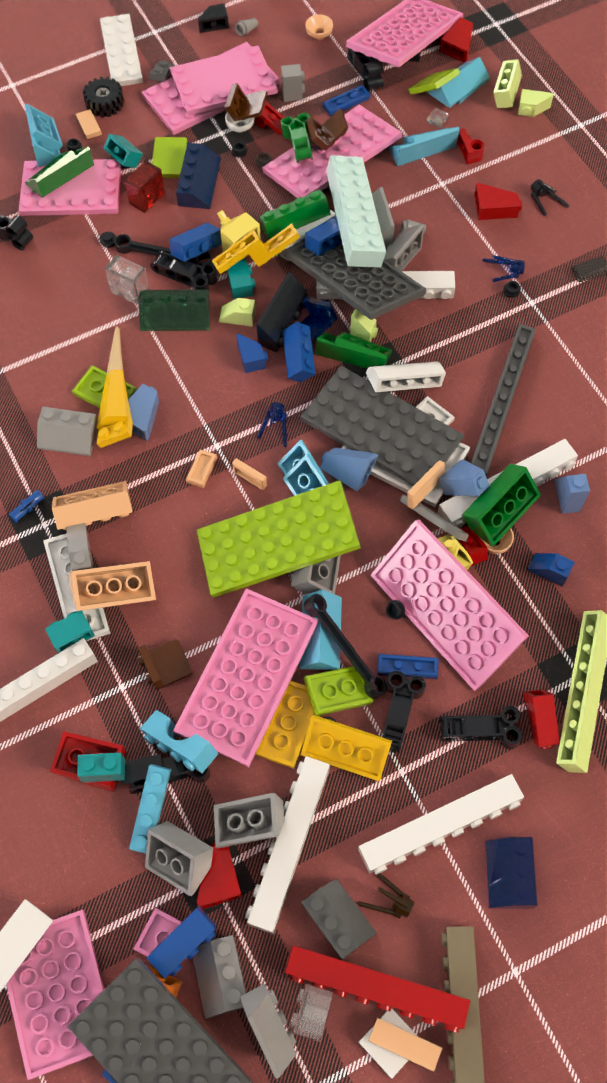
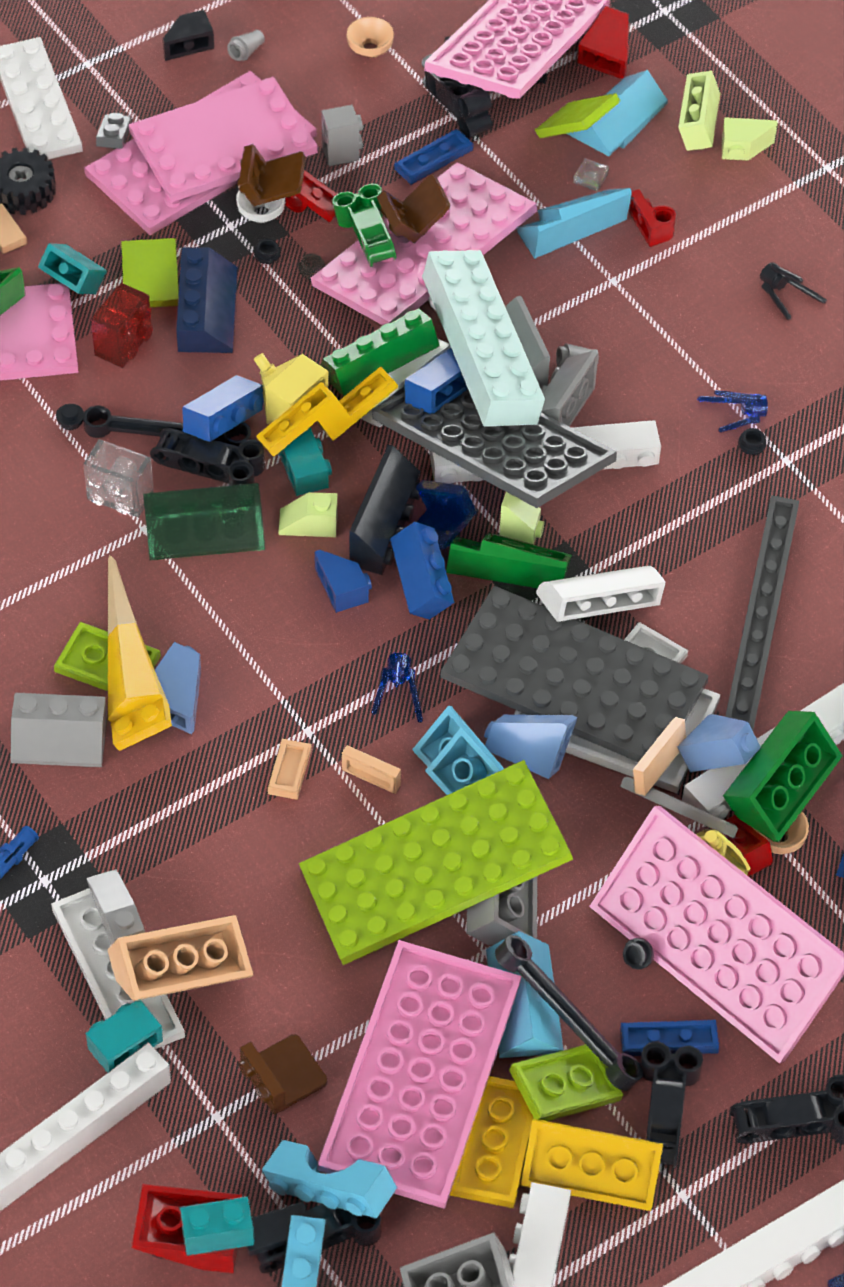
camera: 10 degrees left, 10 degrees down
(92, 505) = (122, 841): light nougat slope -> none
(496, 203) = (707, 305): red slope -> none

